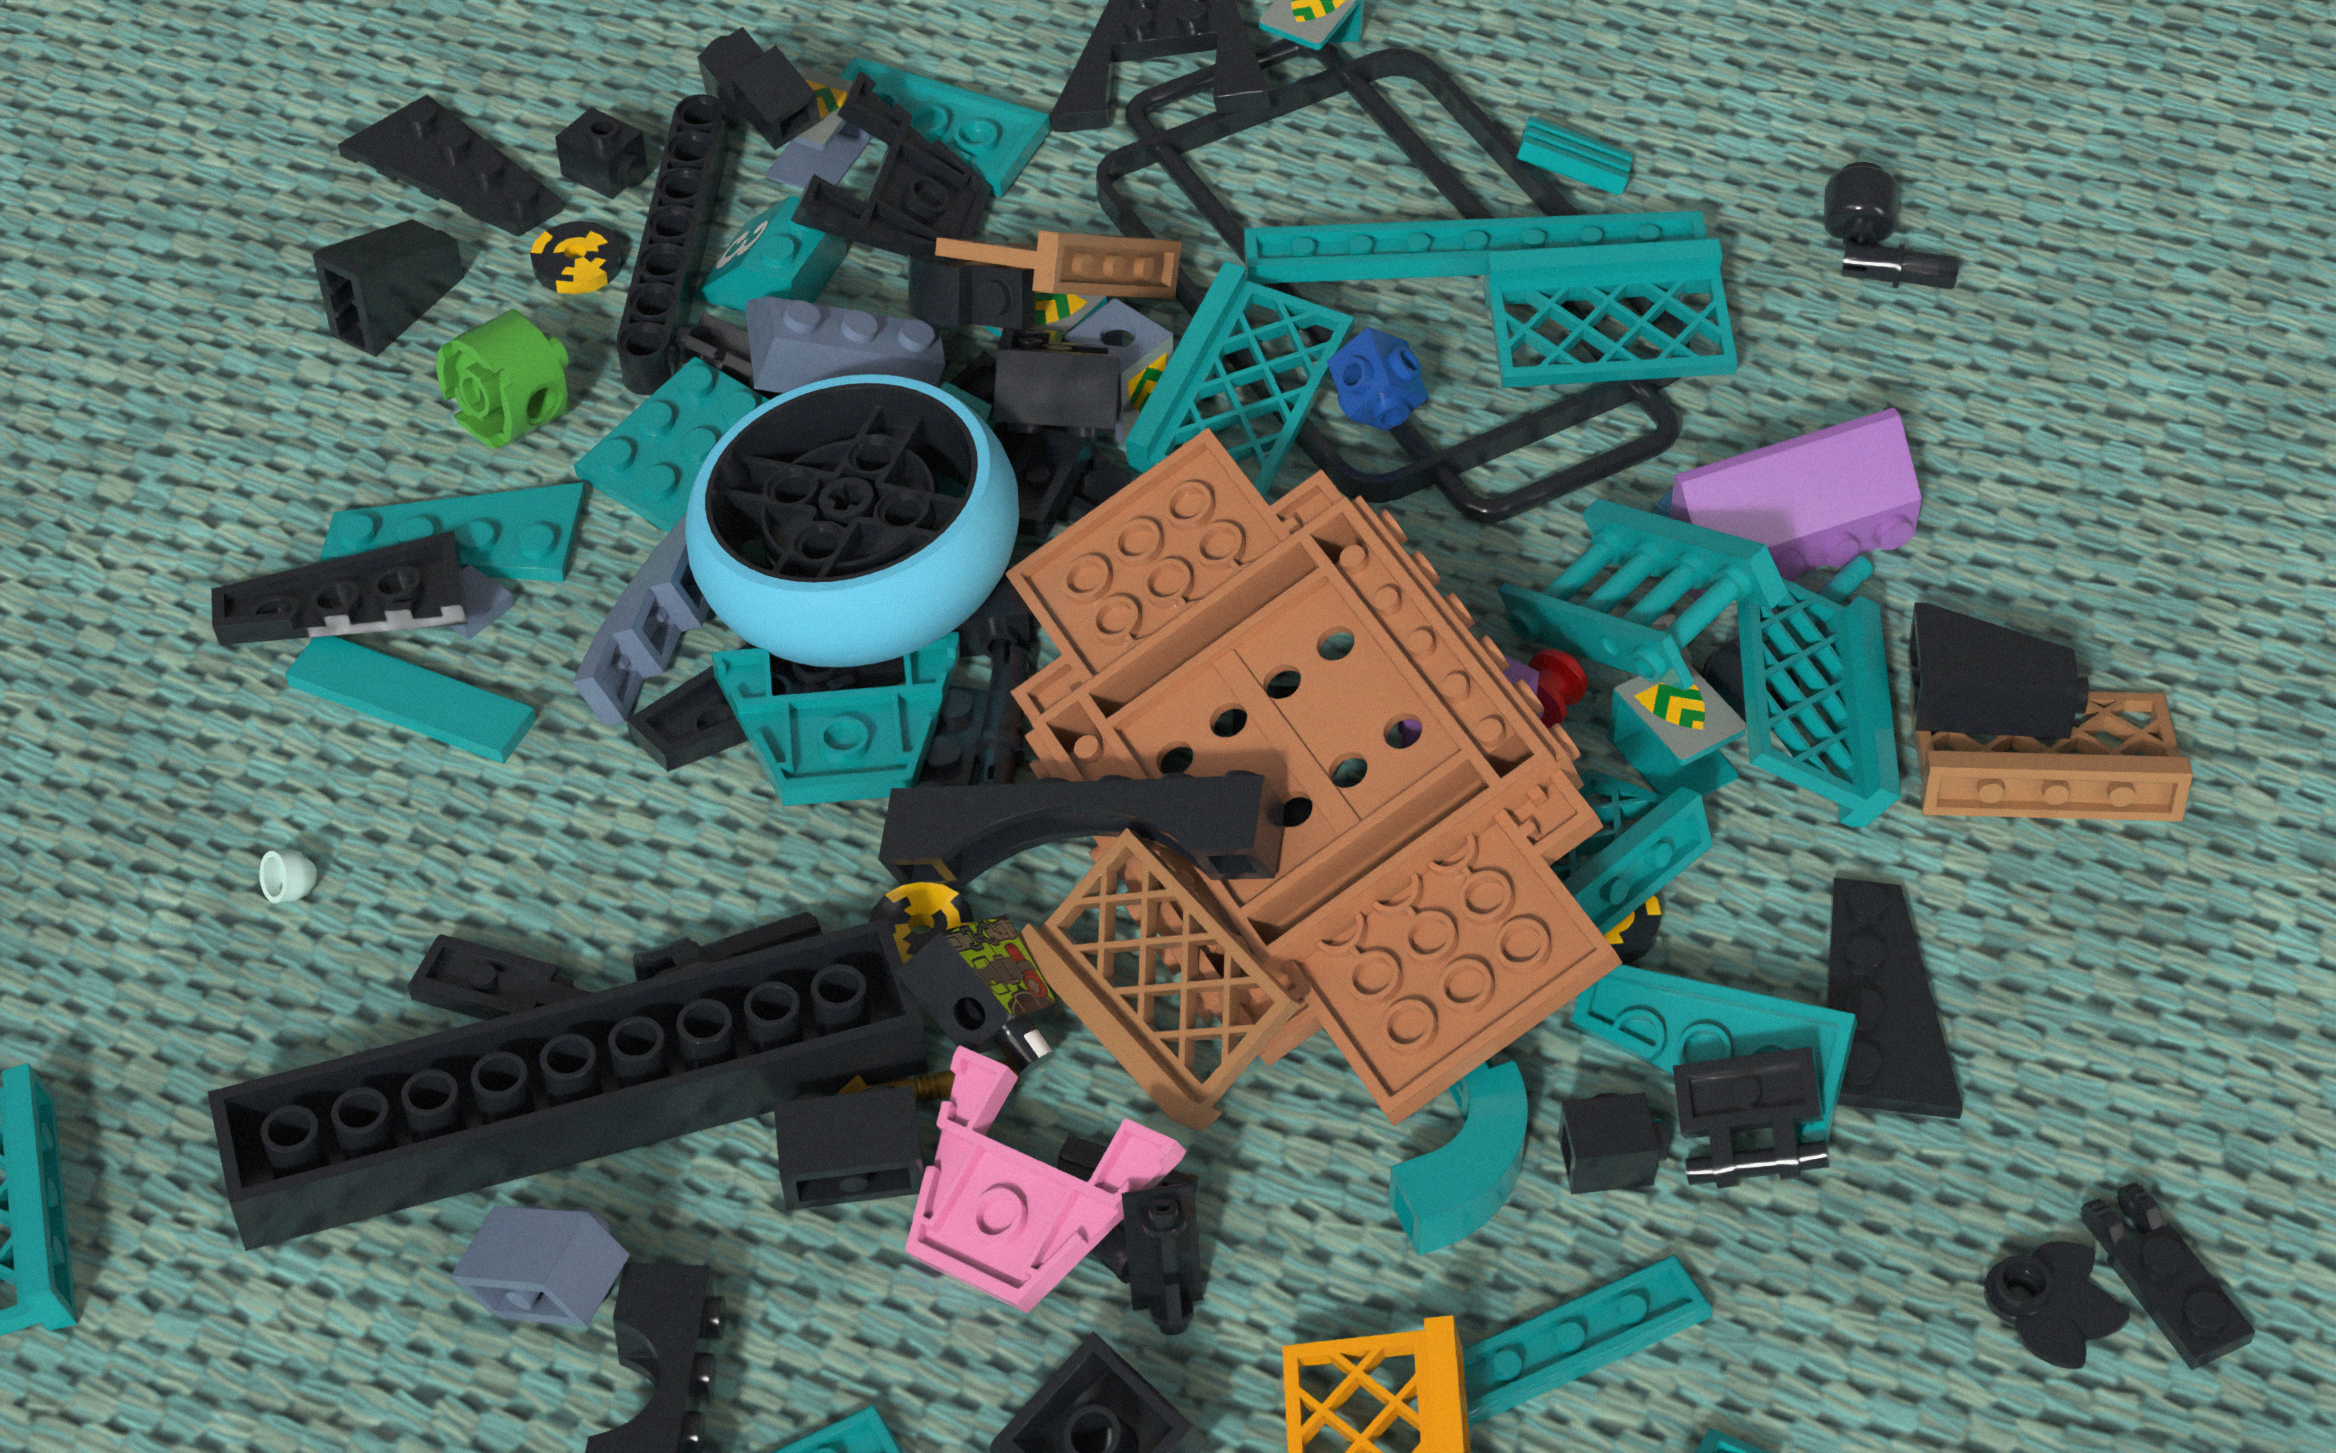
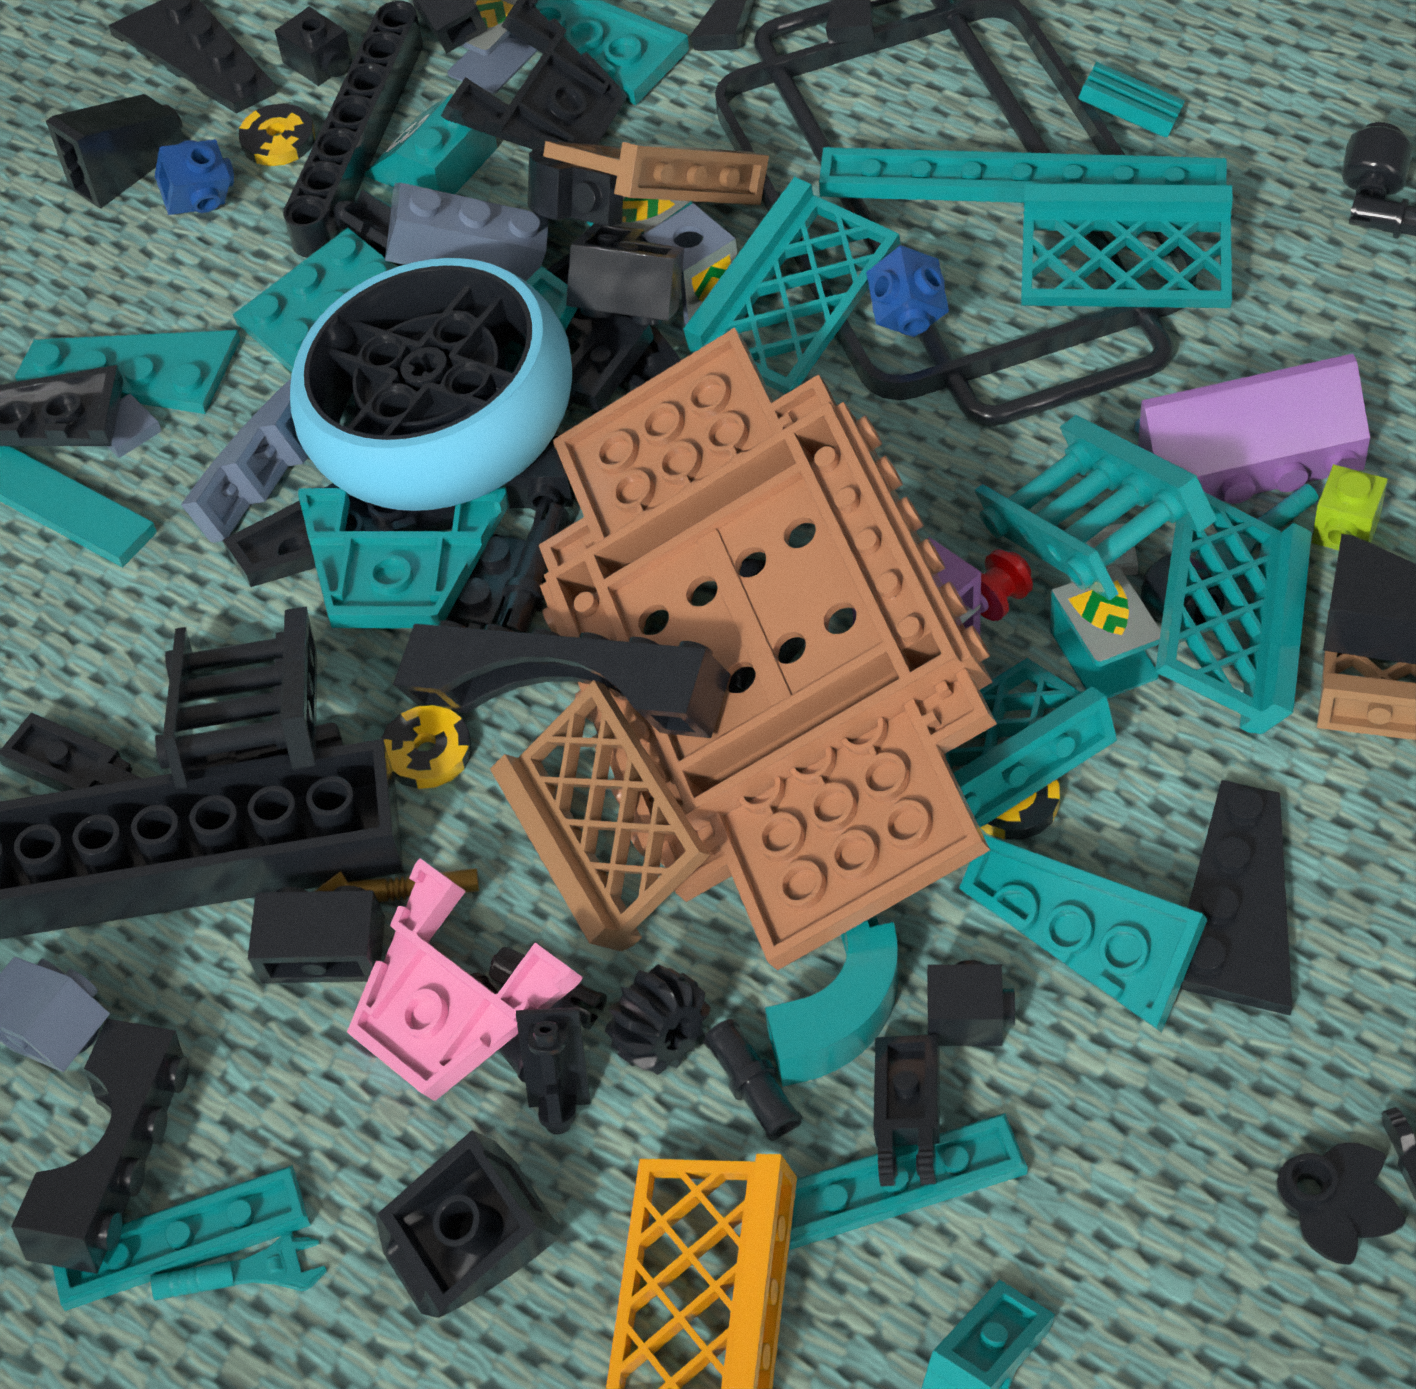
camera: 15 degrees right, 5 degrees up
(487, 294) = (193, 176): none -> blue brick
(504, 378) = (188, 236): bright green brick -> none
(753, 853) = (290, 704): none -> black fence
(984, 990) = (453, 810): black torso -> none
(1270, 1193) = (657, 1019): none -> black gear
(1386, 1249) = (752, 1079): none -> black pin
(1568, 1253) = (907, 1103): none -> black hinge
(1750, 1095) = (1095, 976): black plate -> none
(1911, 573) = (1348, 506): none -> lime brick

